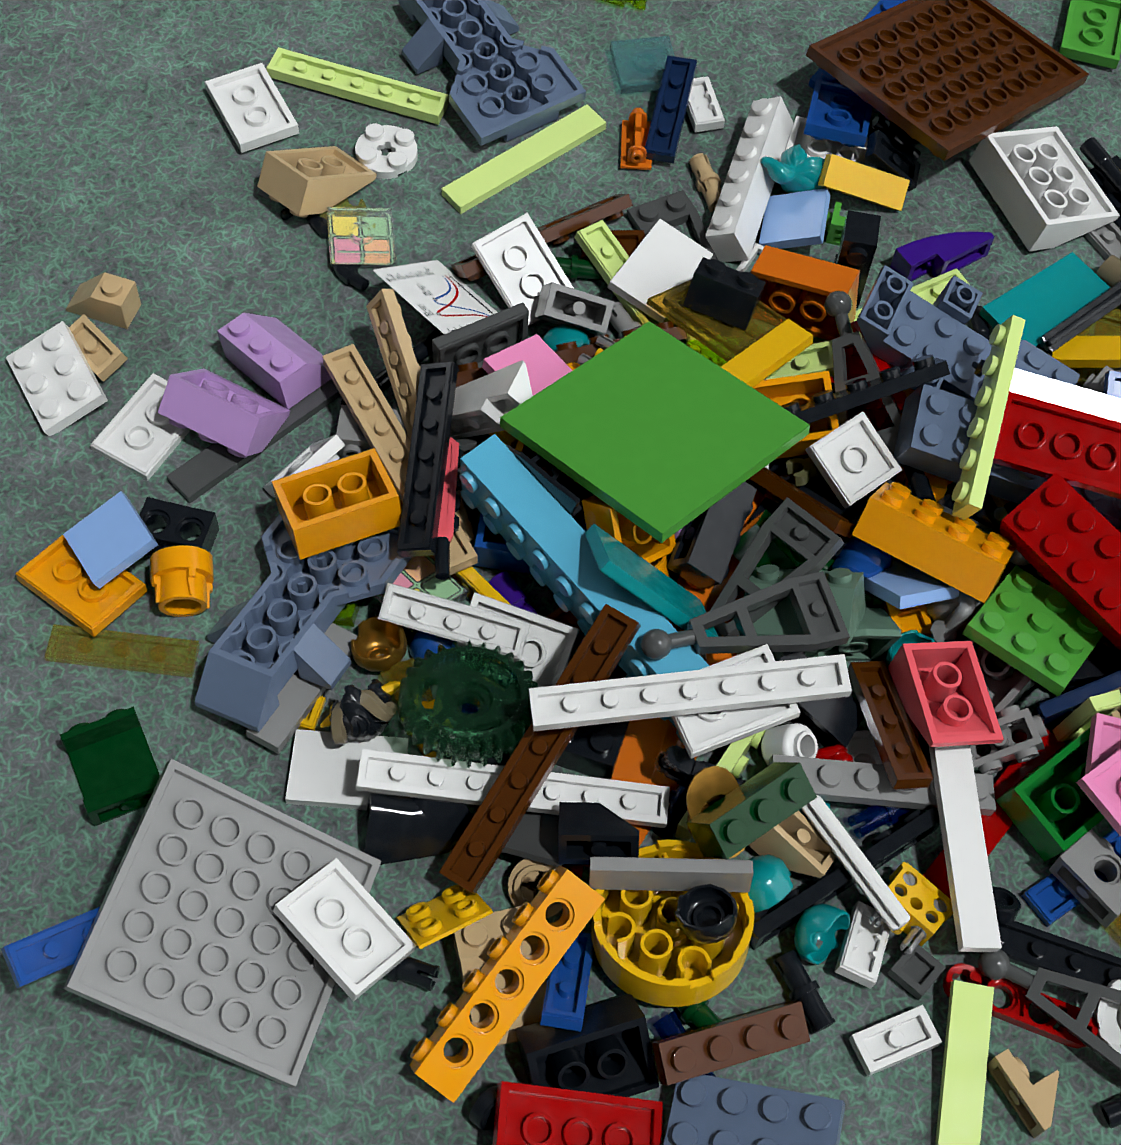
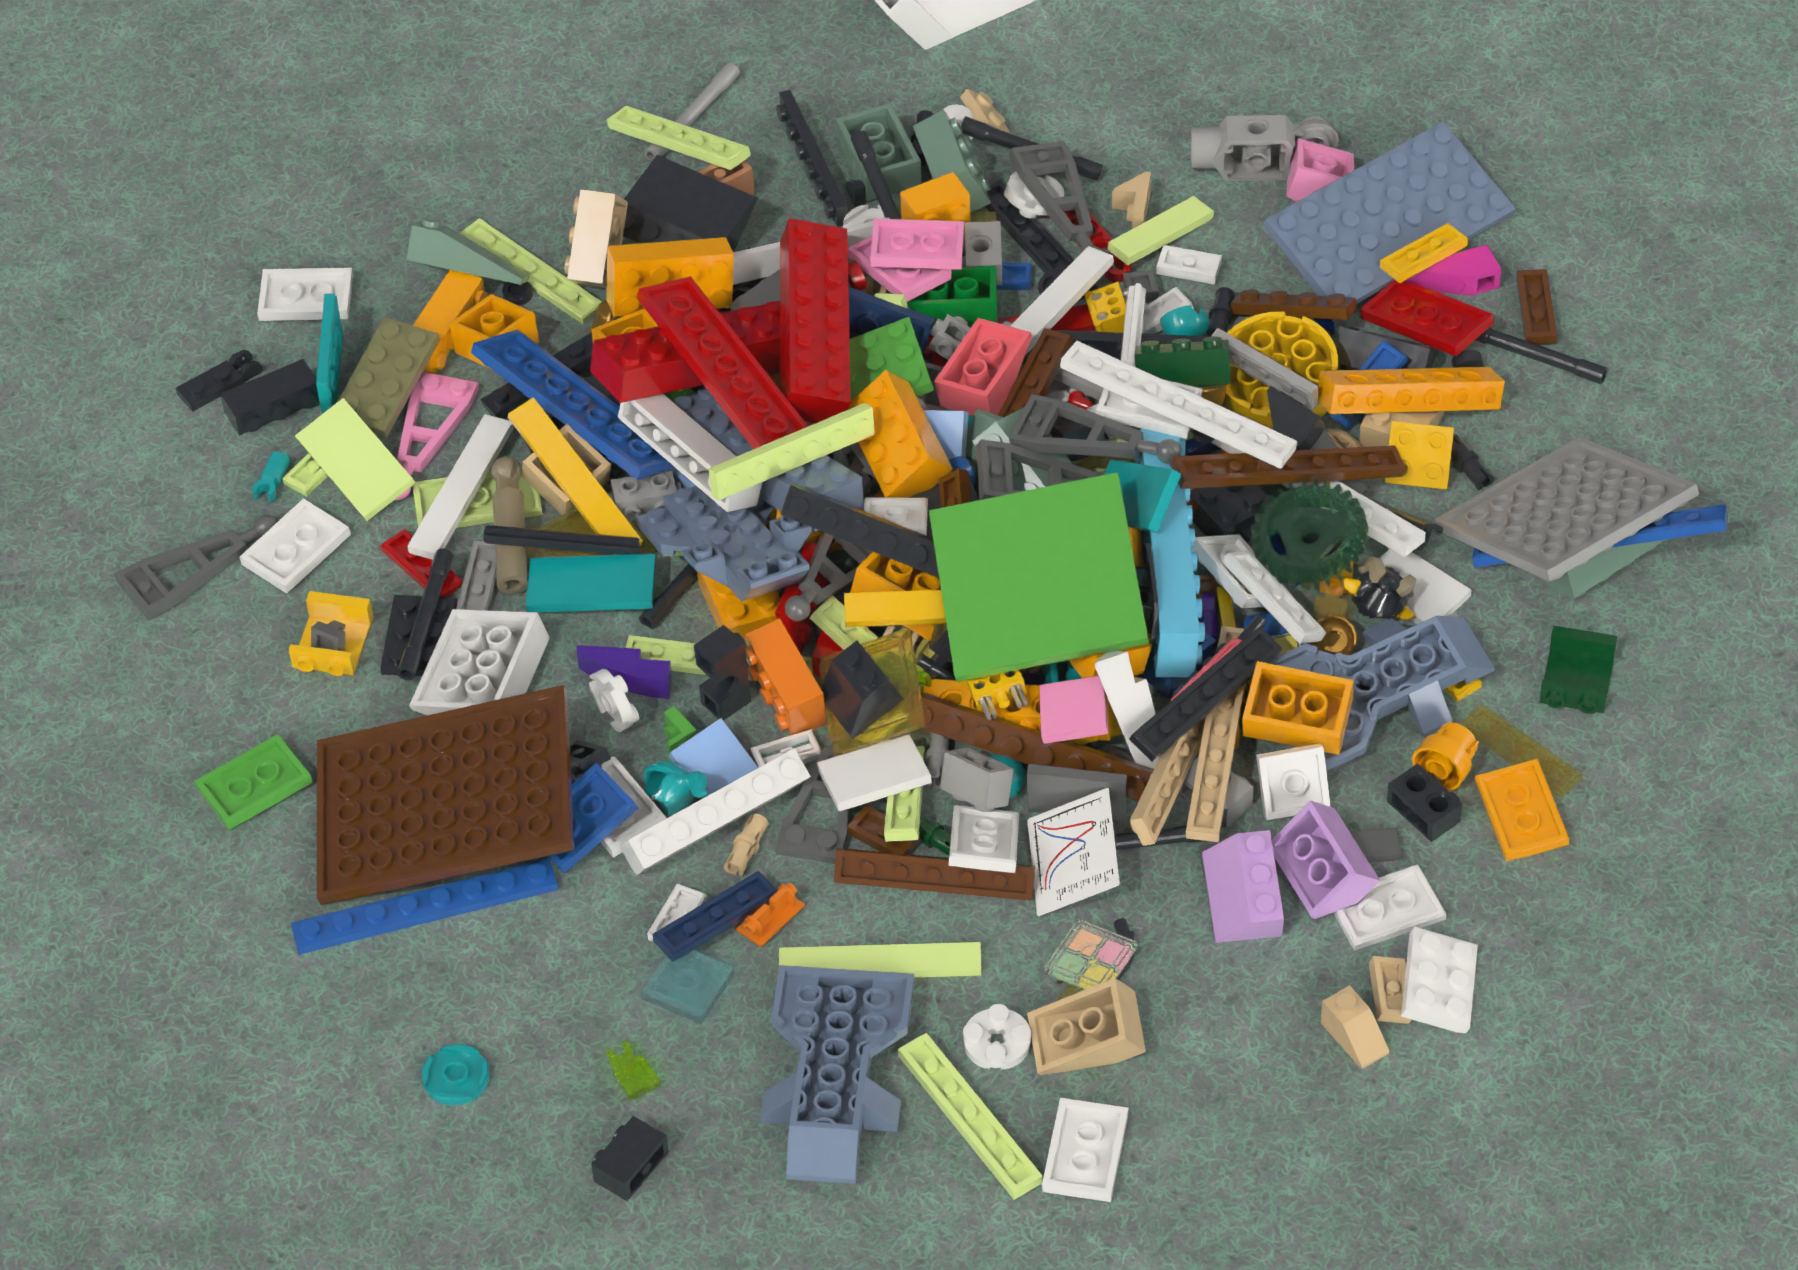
camera: 135 degrees left, 10 degrees down
(110, 539) = (1482, 806): light blue tile -> none
(344, 929) = (1492, 471): white plate -> none
(706, 913) = (1264, 330): black hair -> none
(863, 182) = (632, 746): yellow tile -> none
(918, 224) = (610, 697): none -> white plate

